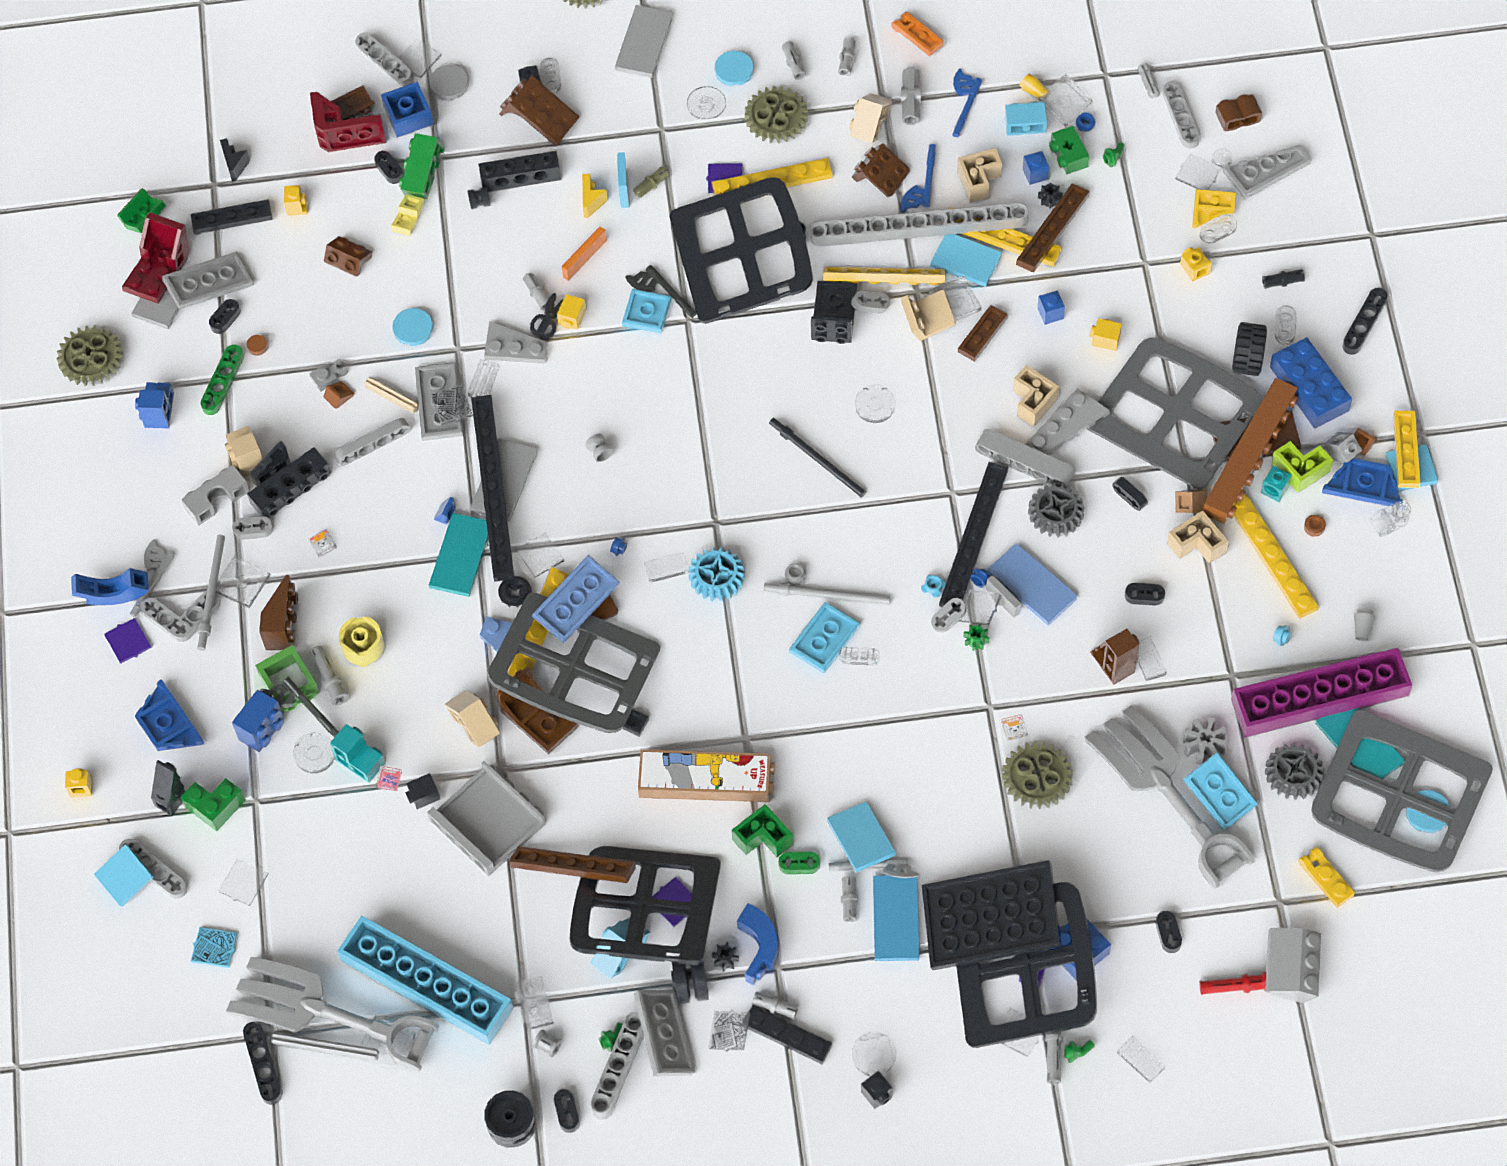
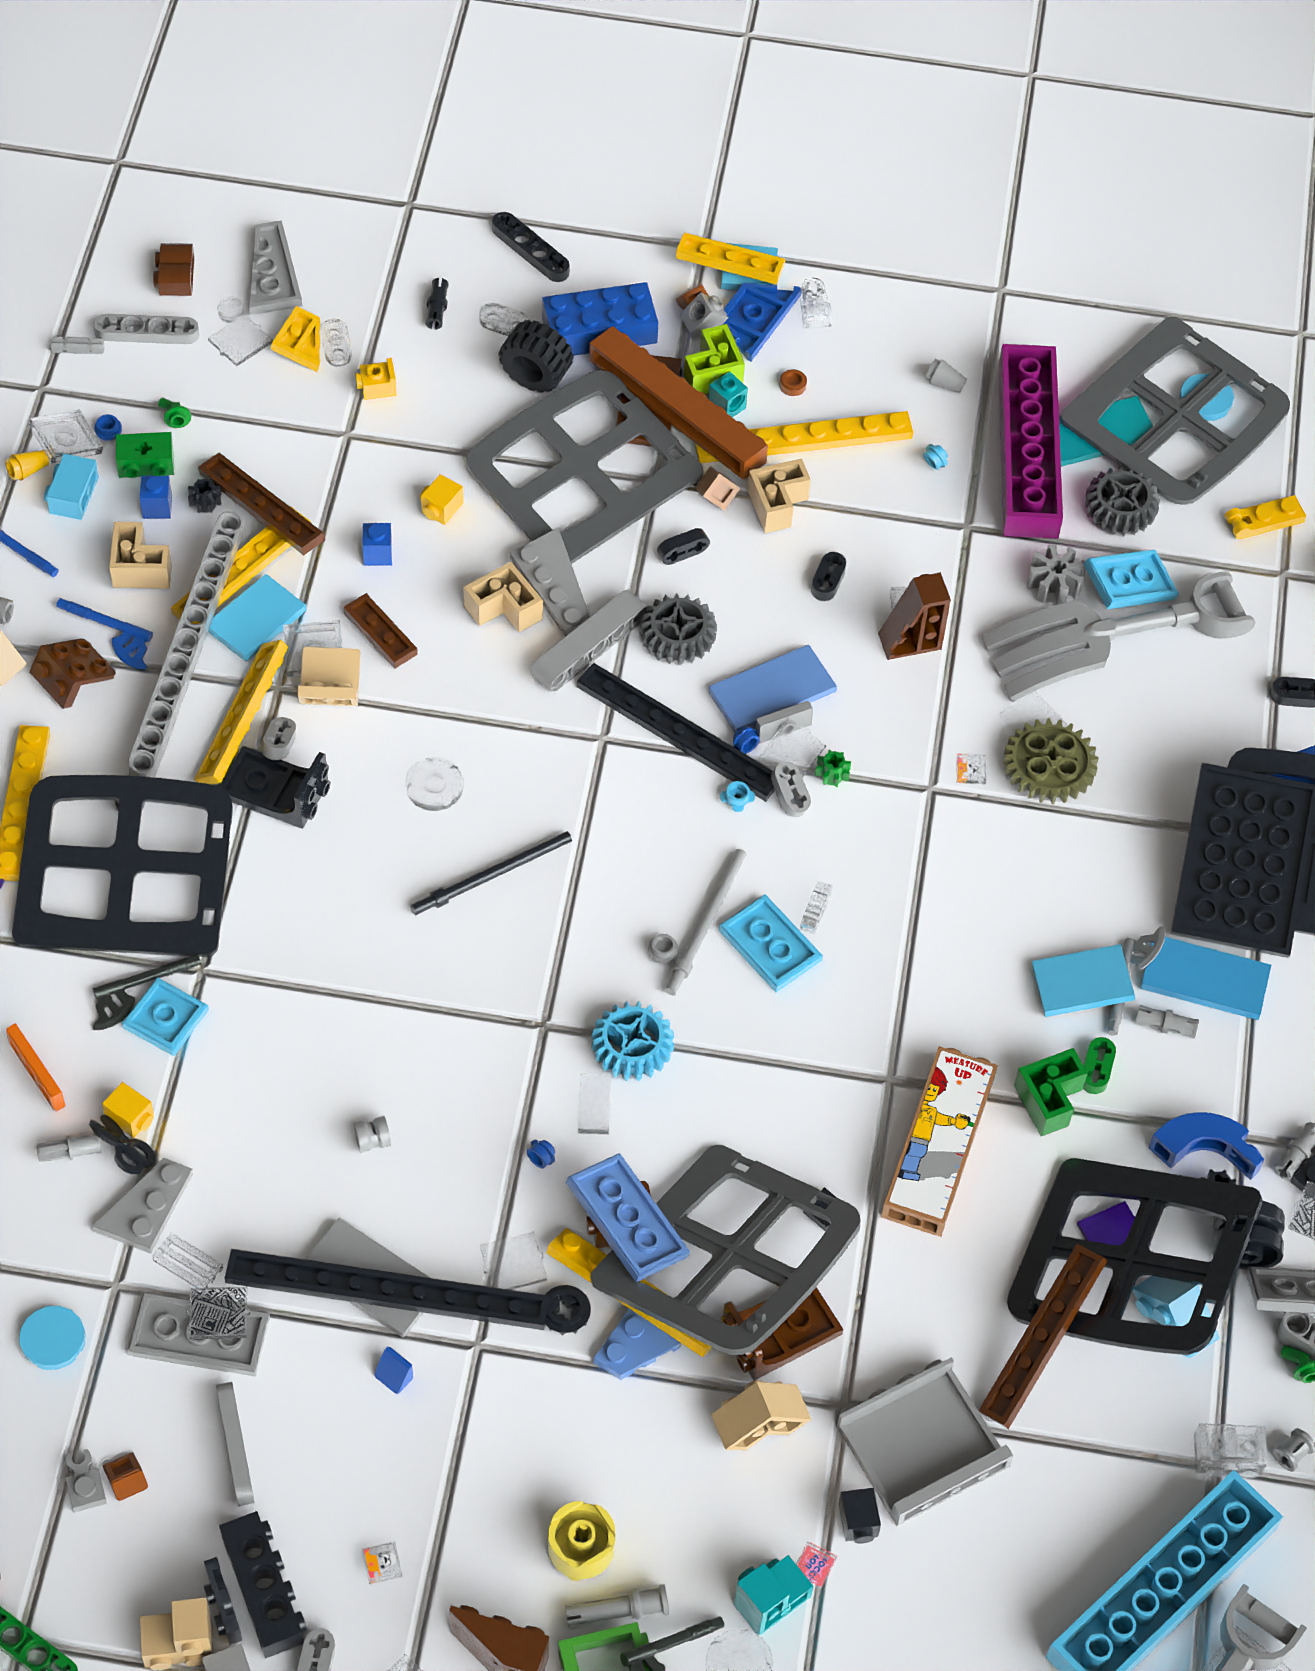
camera: 80 degrees left, 5 degrees down
(391, 394) = (160, 1397): axle -> none
(460, 555) = (476, 1369): teal tile -> none

